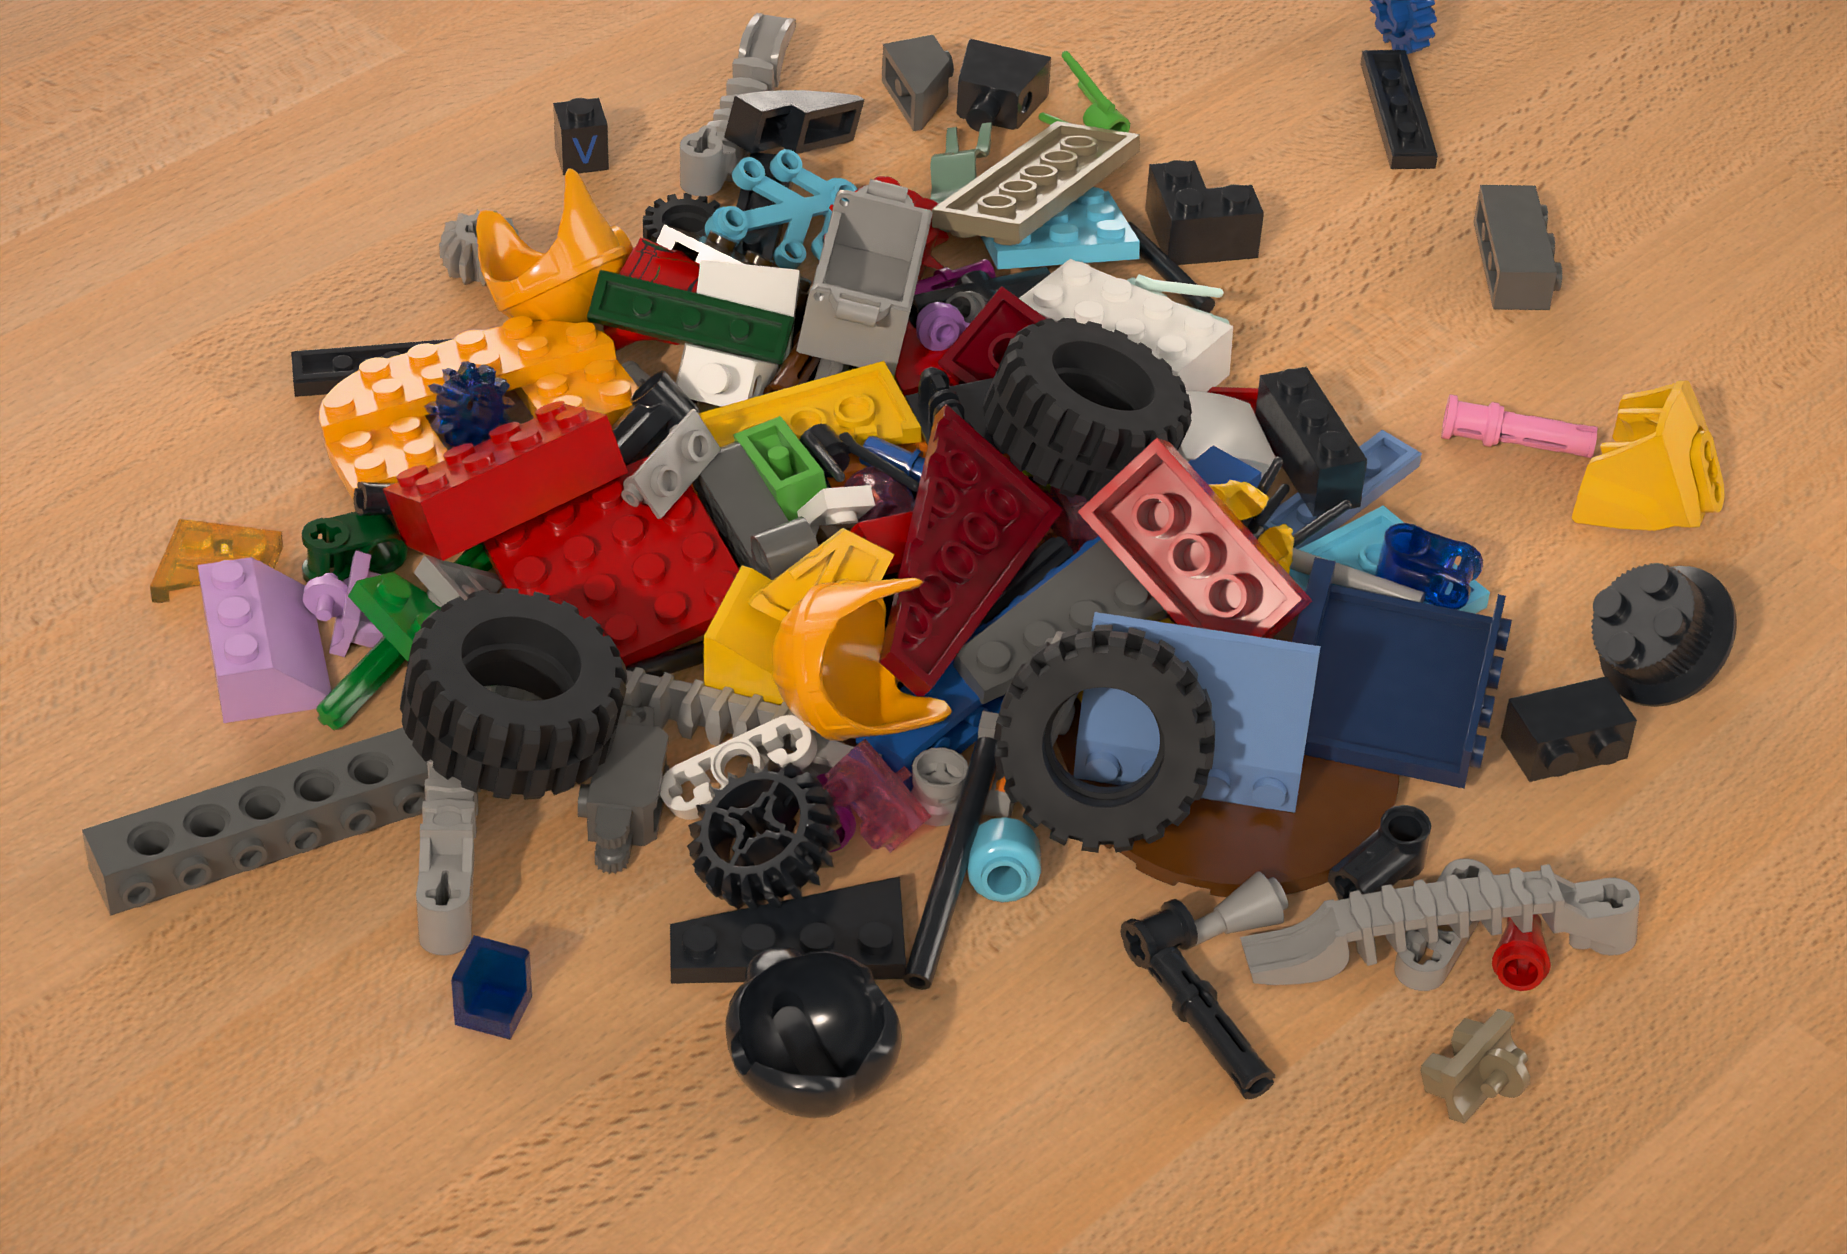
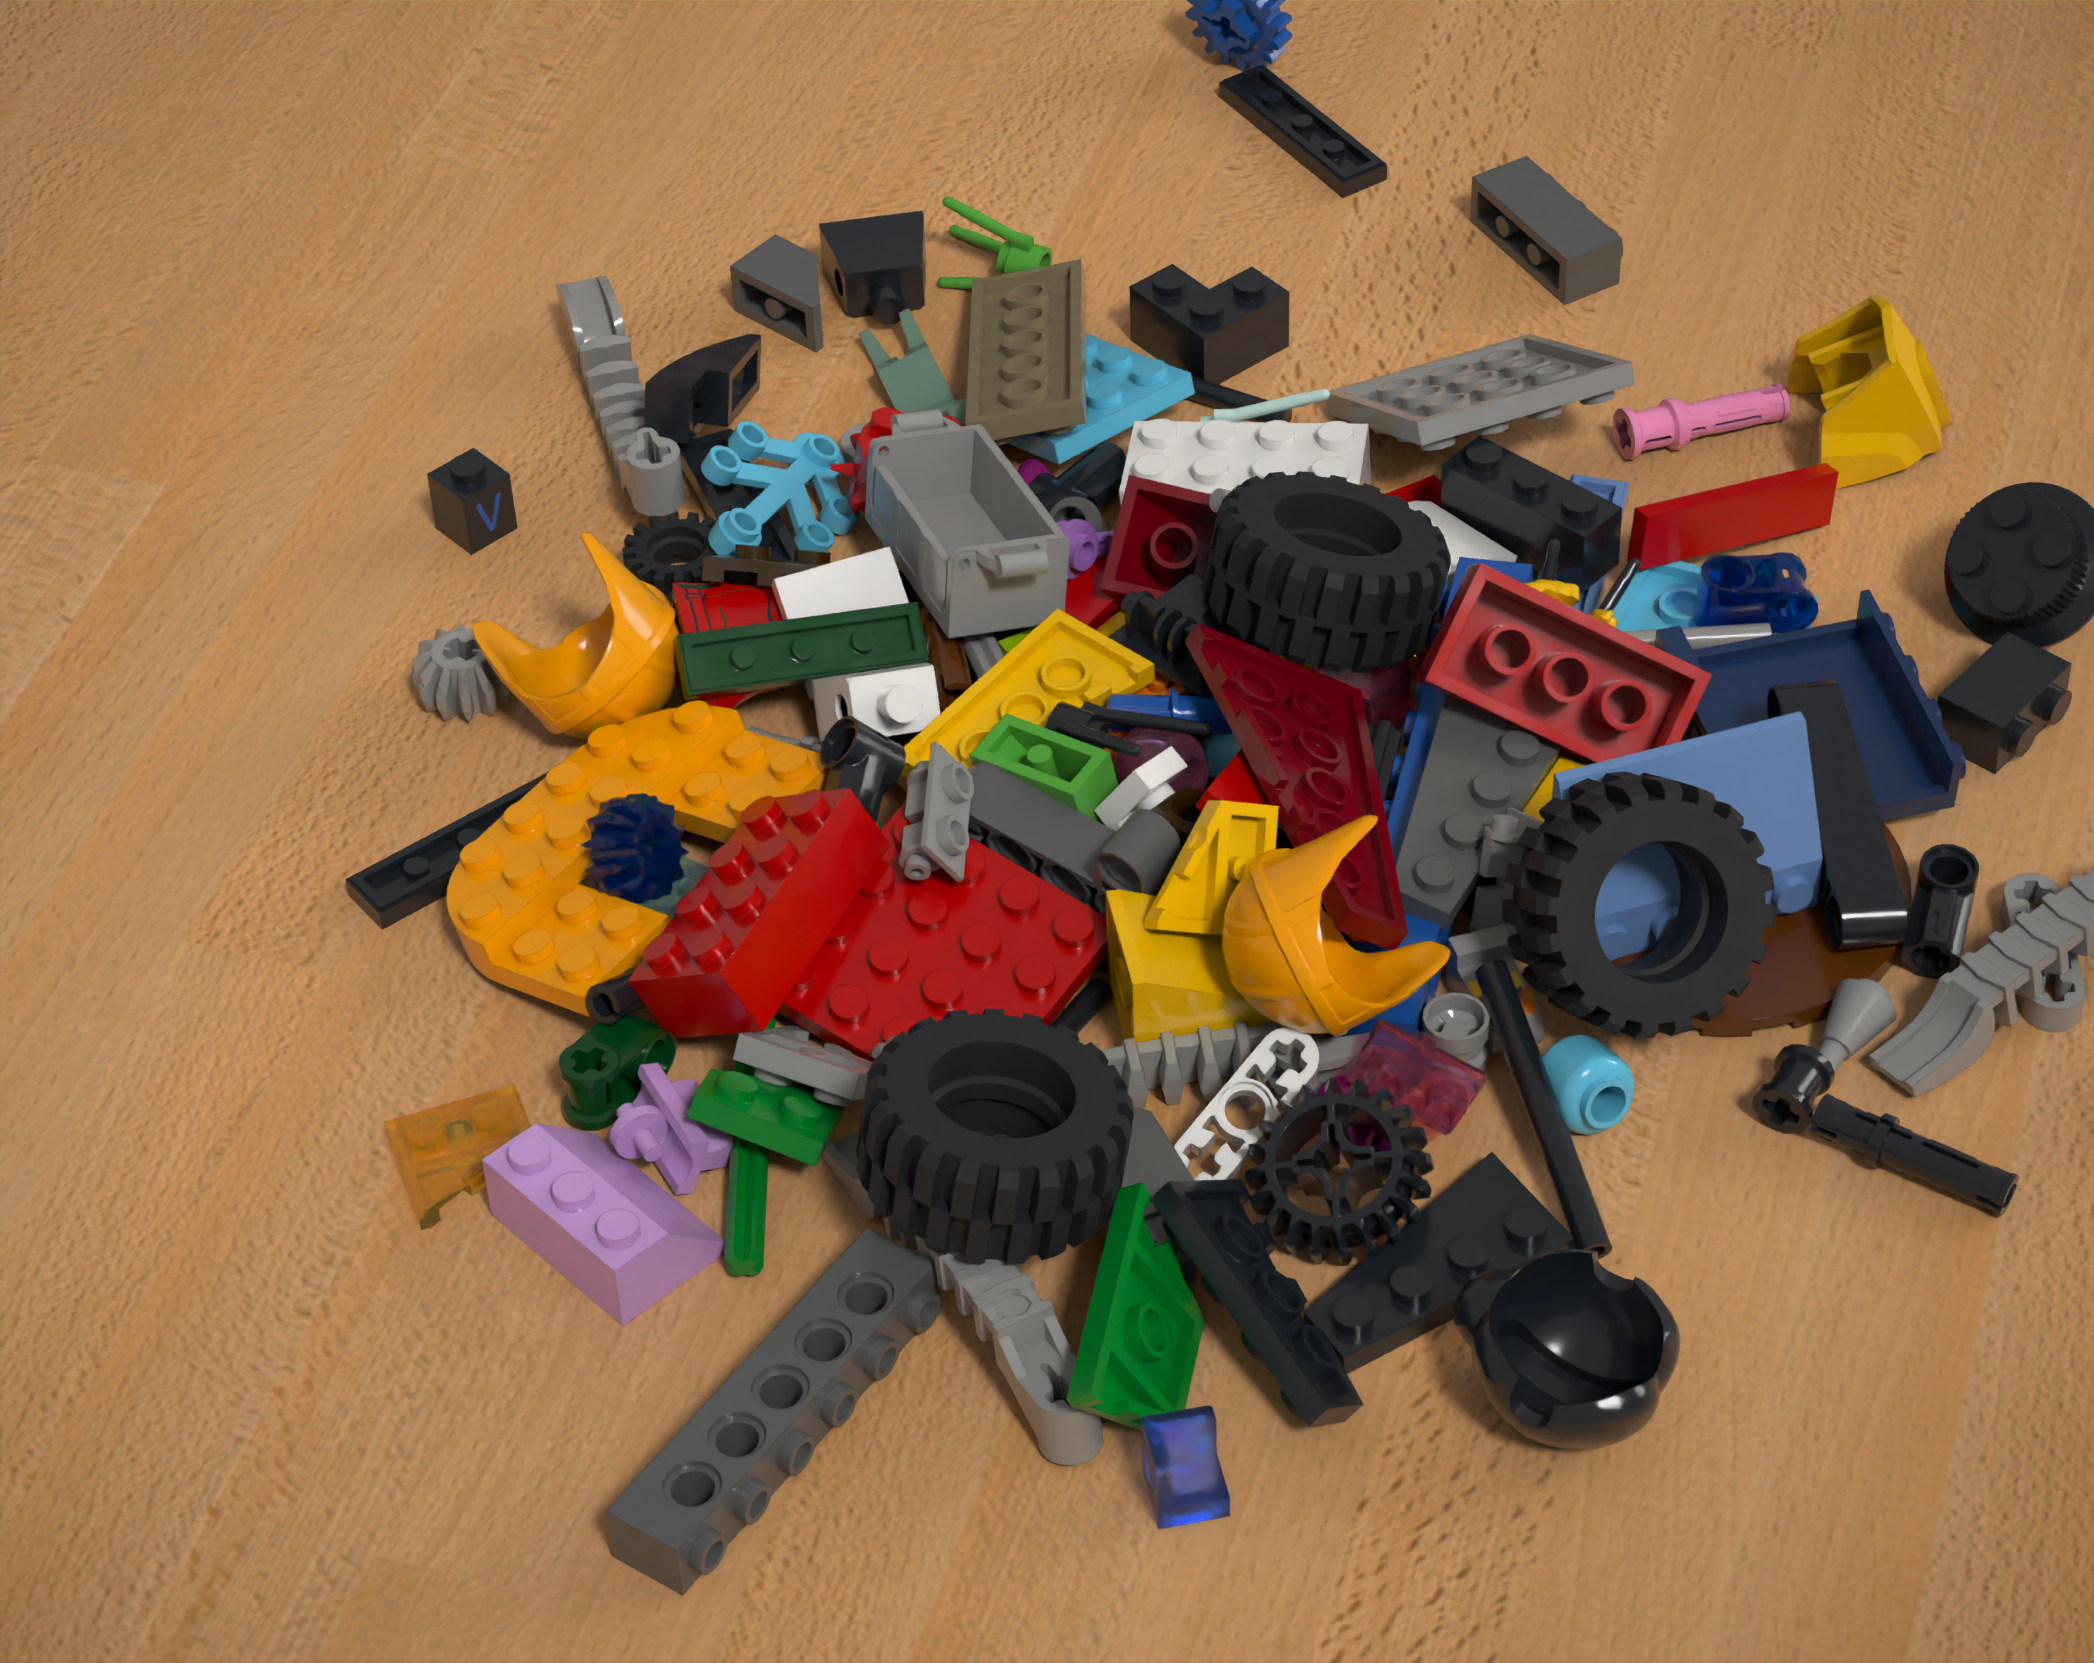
camera: 25 degrees left, 0 degrees up
(530, 875) = (1139, 1324): none -> green wing
(635, 882) = (1238, 1274): none -> black wing
(1345, 336) = (1480, 390): none -> light grey plate
(1345, 750) = (1858, 875): none -> black beam
(1467, 505) = (1732, 516): none -> red tile

